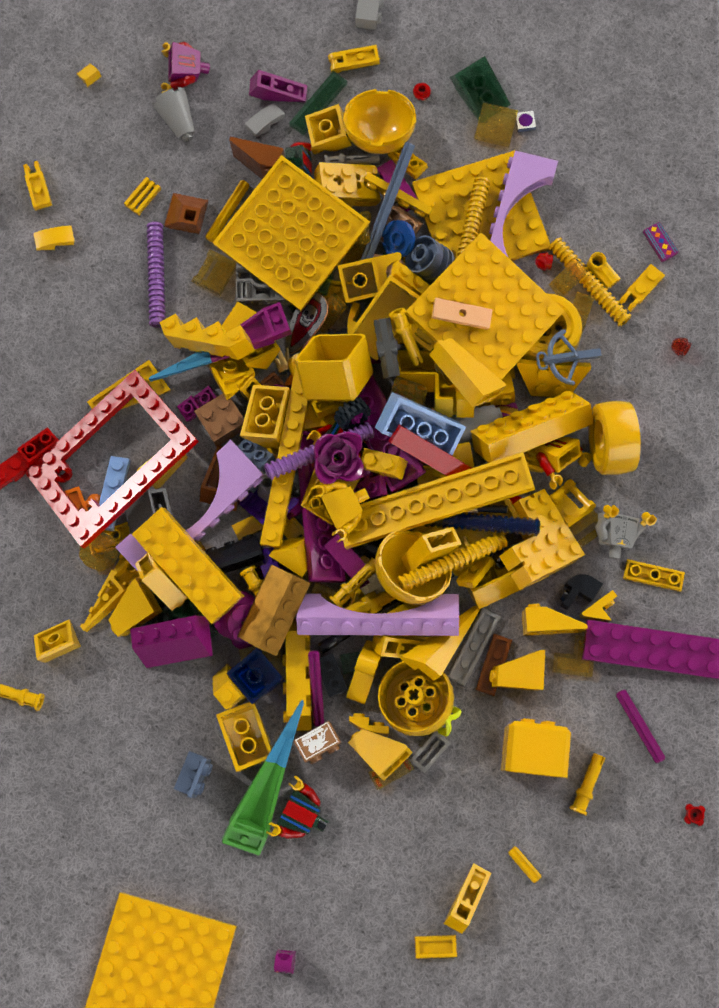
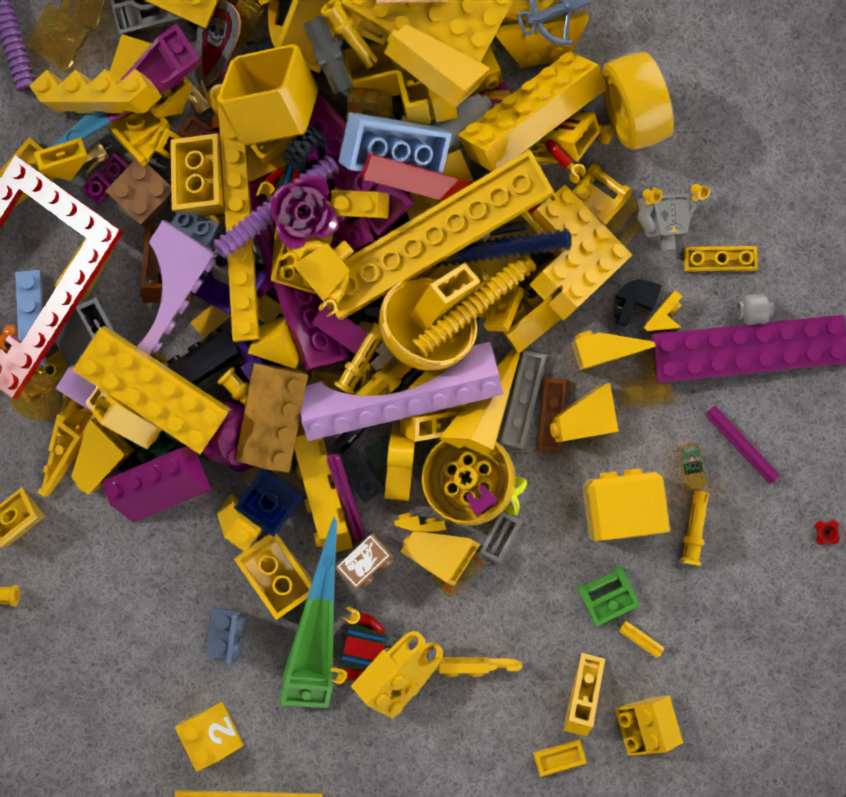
camera: 20 degrees left, 10 degrees up
(158, 854) = (209, 736): none -> yellow slope
(168, 380) = (62, 160): none -> yellow slope
(190, 294) = (57, 38): none -> clear yellow slope
(197, 381) = (99, 153): none -> pearl gold piece
(321, 841) = (397, 675): none -> yellow brick
(384, 851) = (476, 665): none -> yellow plate
(422, 719) = (483, 504): none -> magenta tile
(507, 828) = (612, 603): none -> bright green plate
(515, 938) = (649, 726): none -> yellow slope
(595, 733) = (691, 467): none -> leg
(673, 620) = (754, 309): none -> light grey head

